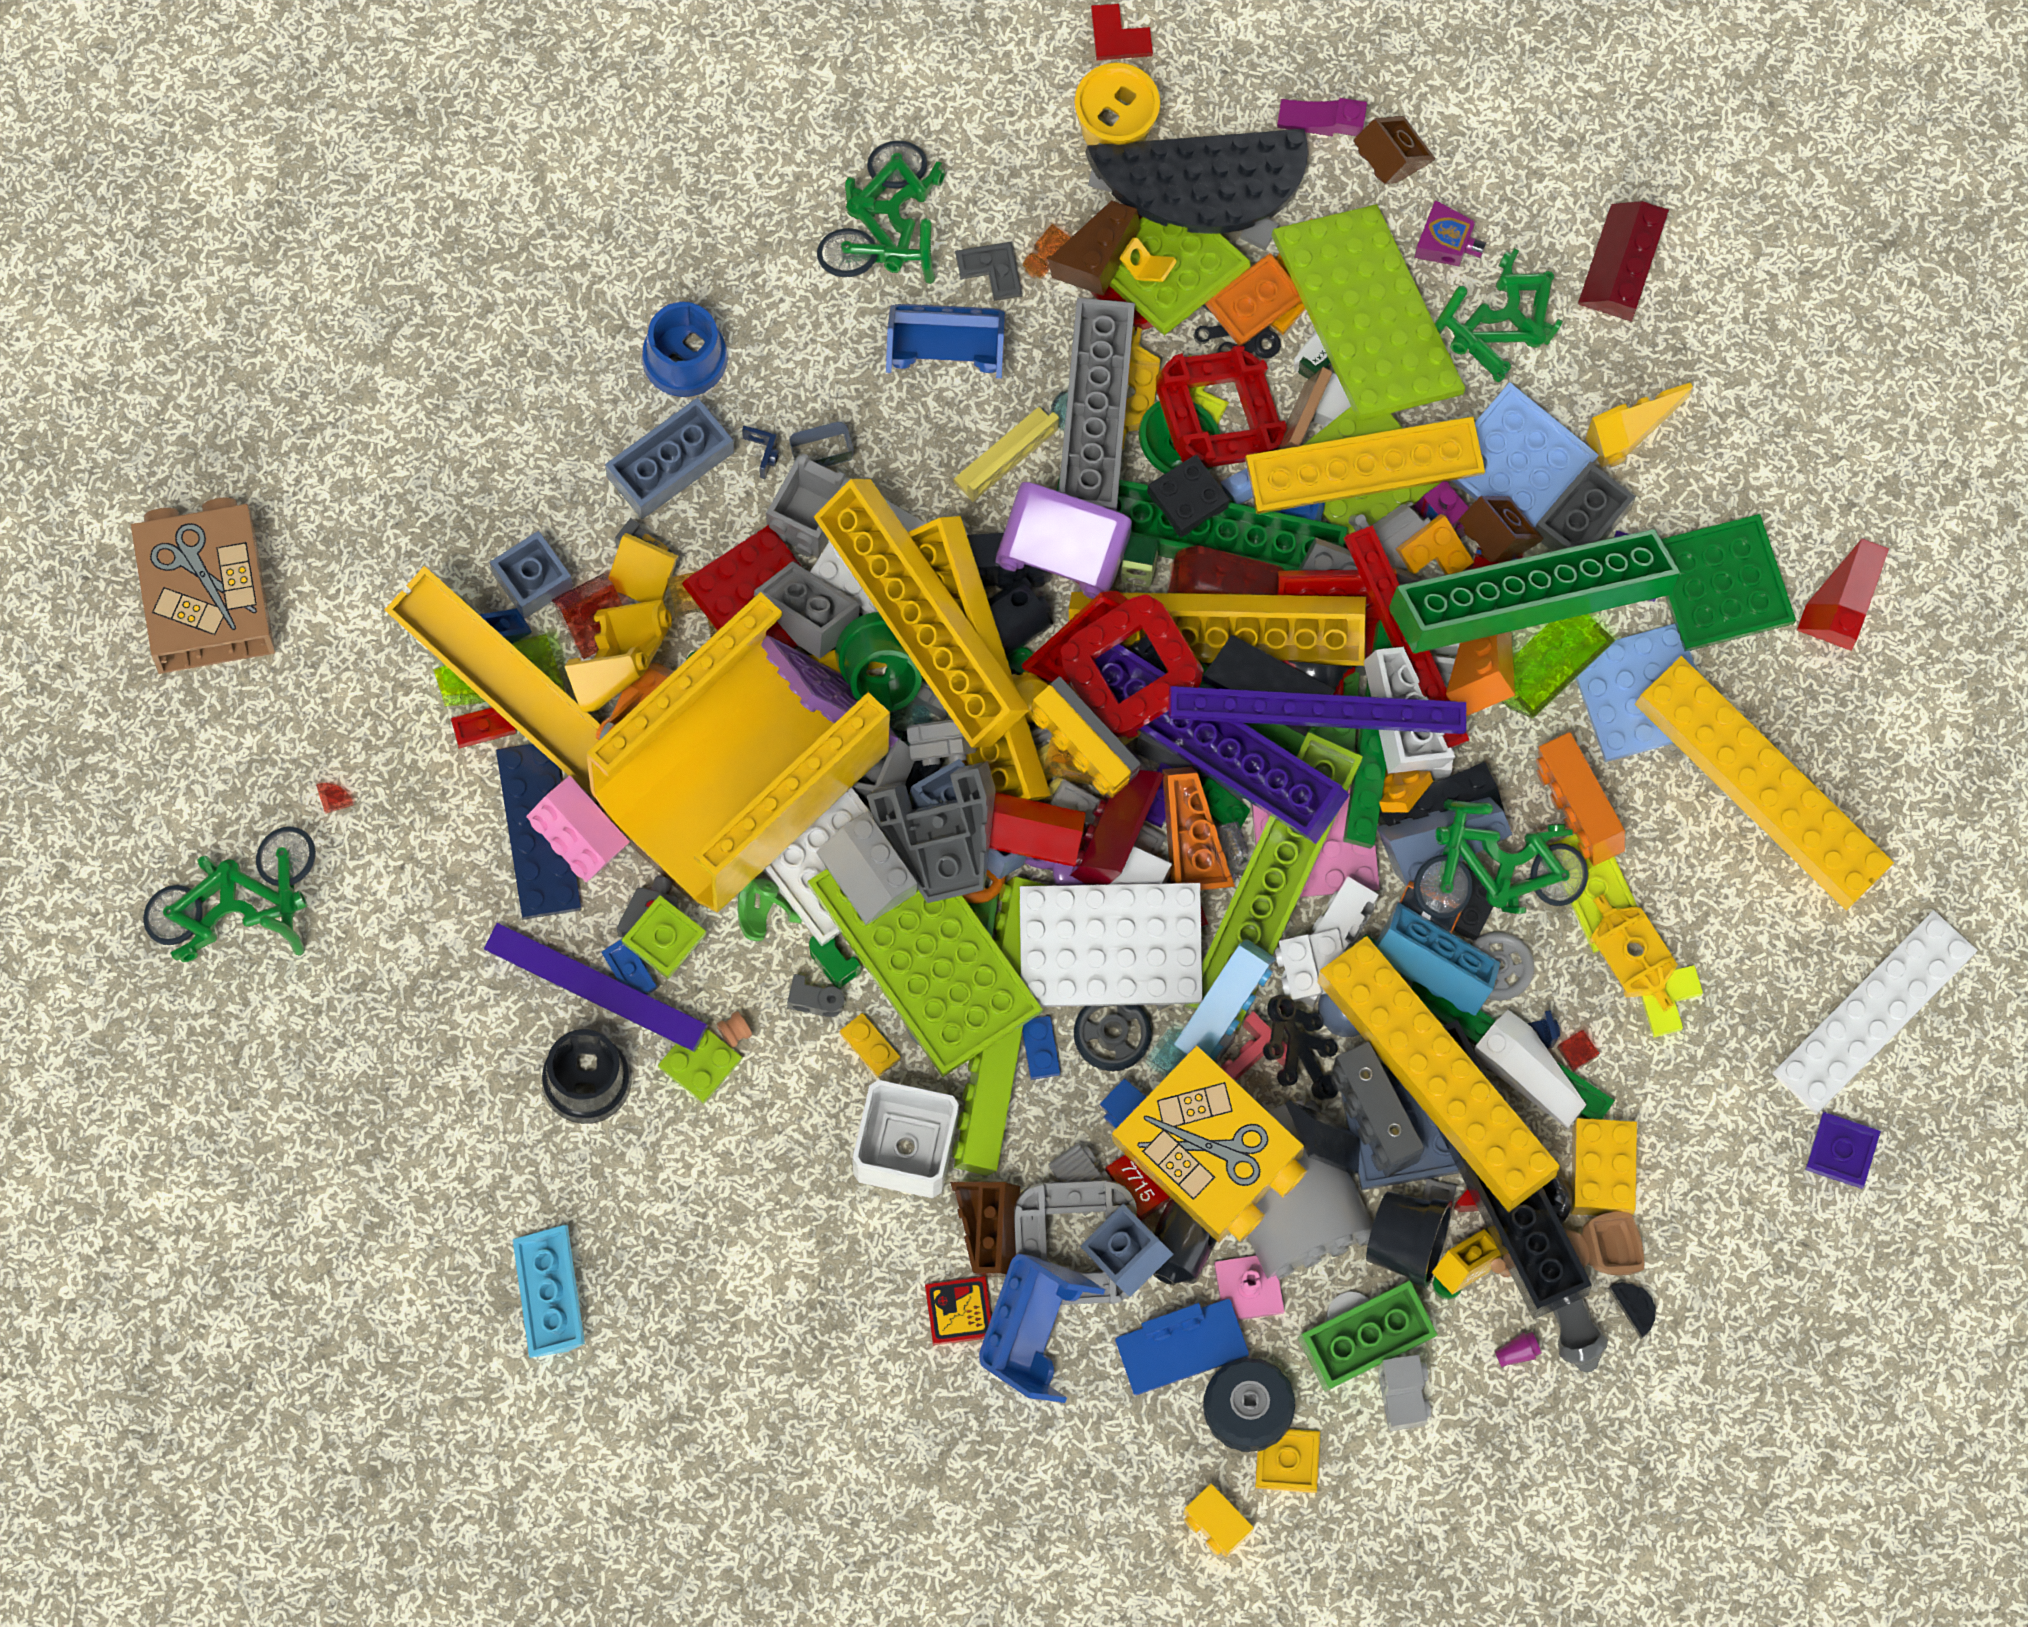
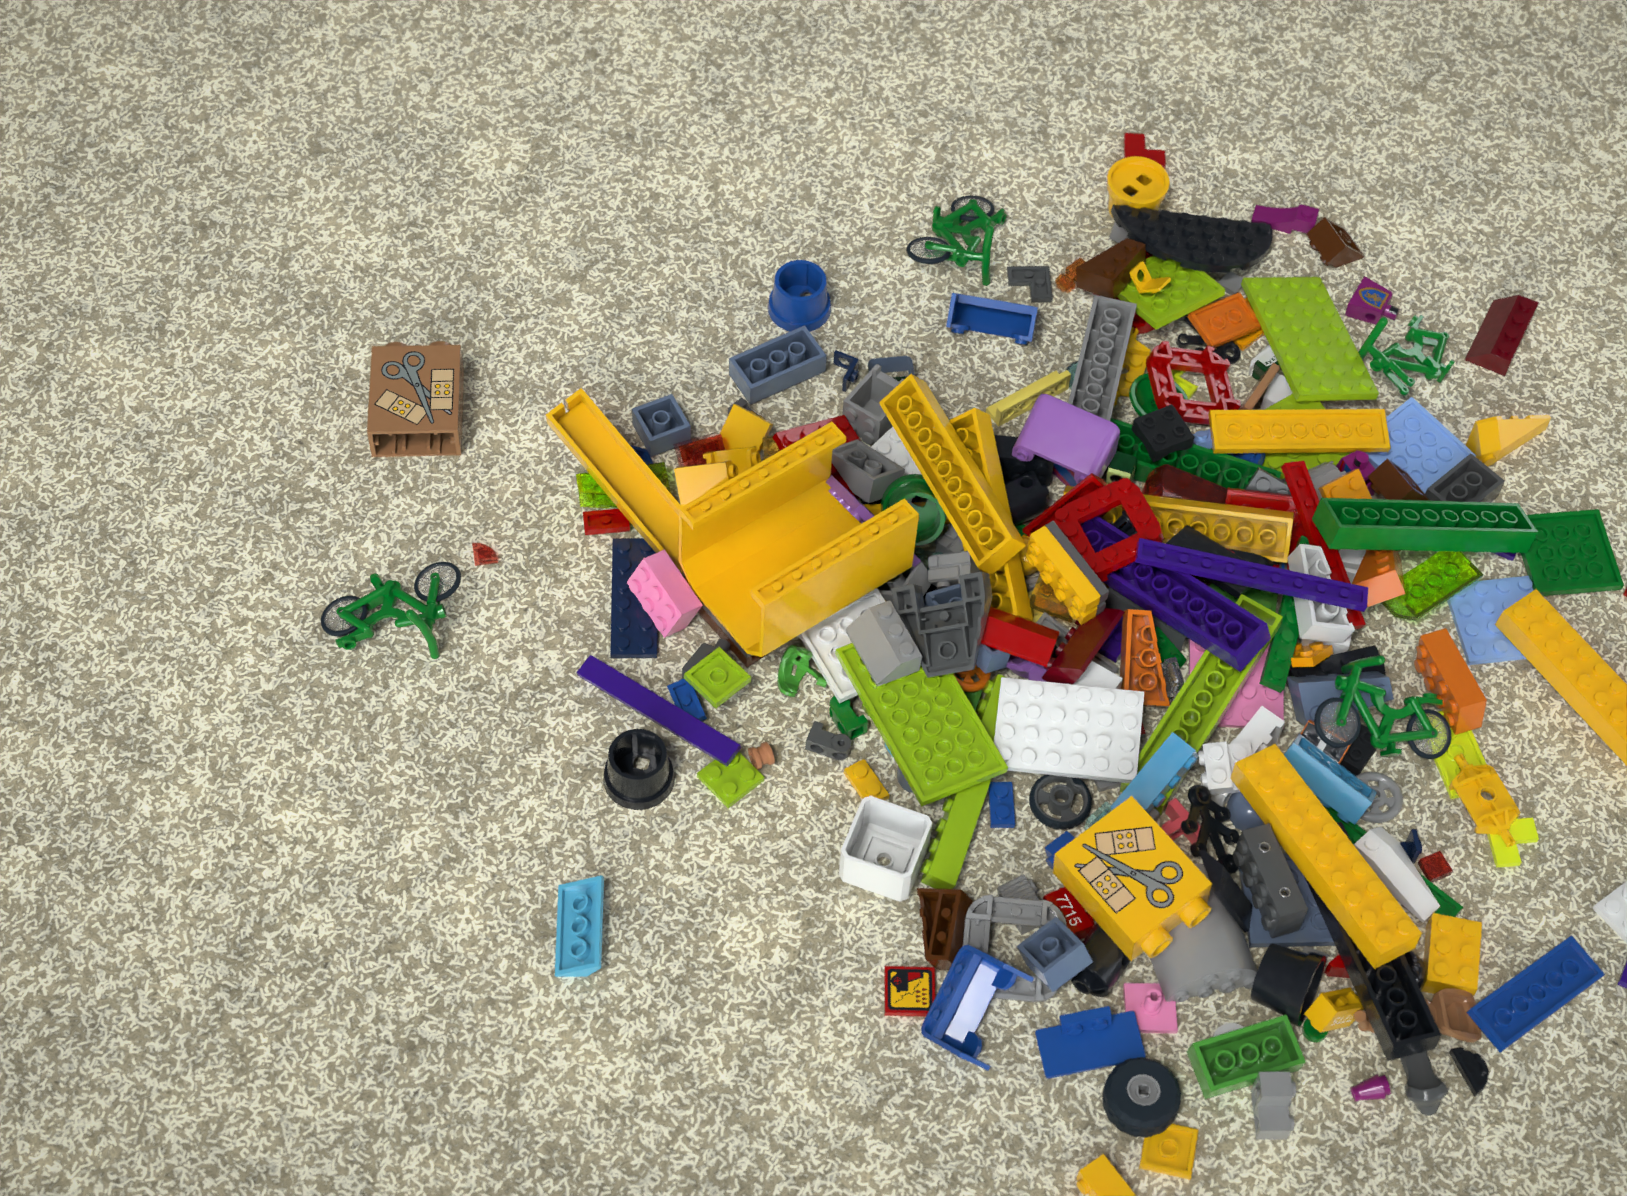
camera: 10 degrees right, 15 degrees down
(1706, 1201) = (1535, 993): none -> blue plate

